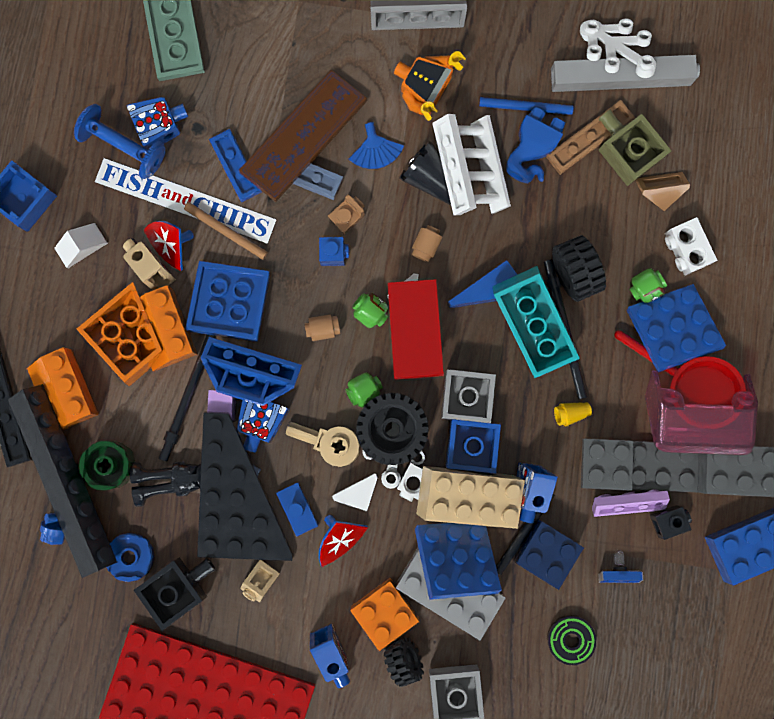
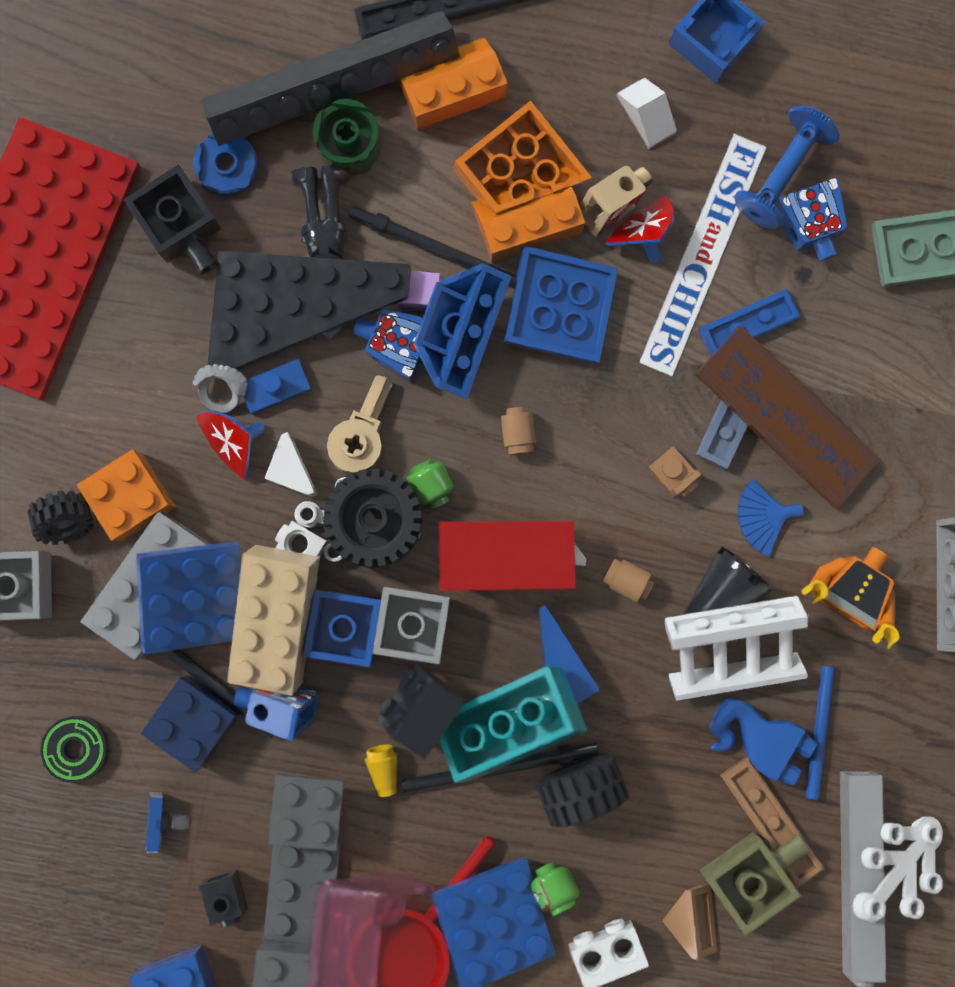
camera: 90 degrees right, 0 degrees up
(51, 530) = (265, 62): blue piece -> none
(225, 230) = (658, 306): medium nougat bar -> none
(259, 581) = (181, 331): tan bracket -> none
(294, 538) = (235, 380): none -> light grey piece
(330, 655) = (76, 419): blue torso -> none
(333, 251) = (623, 450): blue brick -> none
(370, 310) = (539, 497): bright green head -> none
(530, 386) = (419, 710): none -> black hinge
(630, 503) = (253, 842): lavender plate -> none

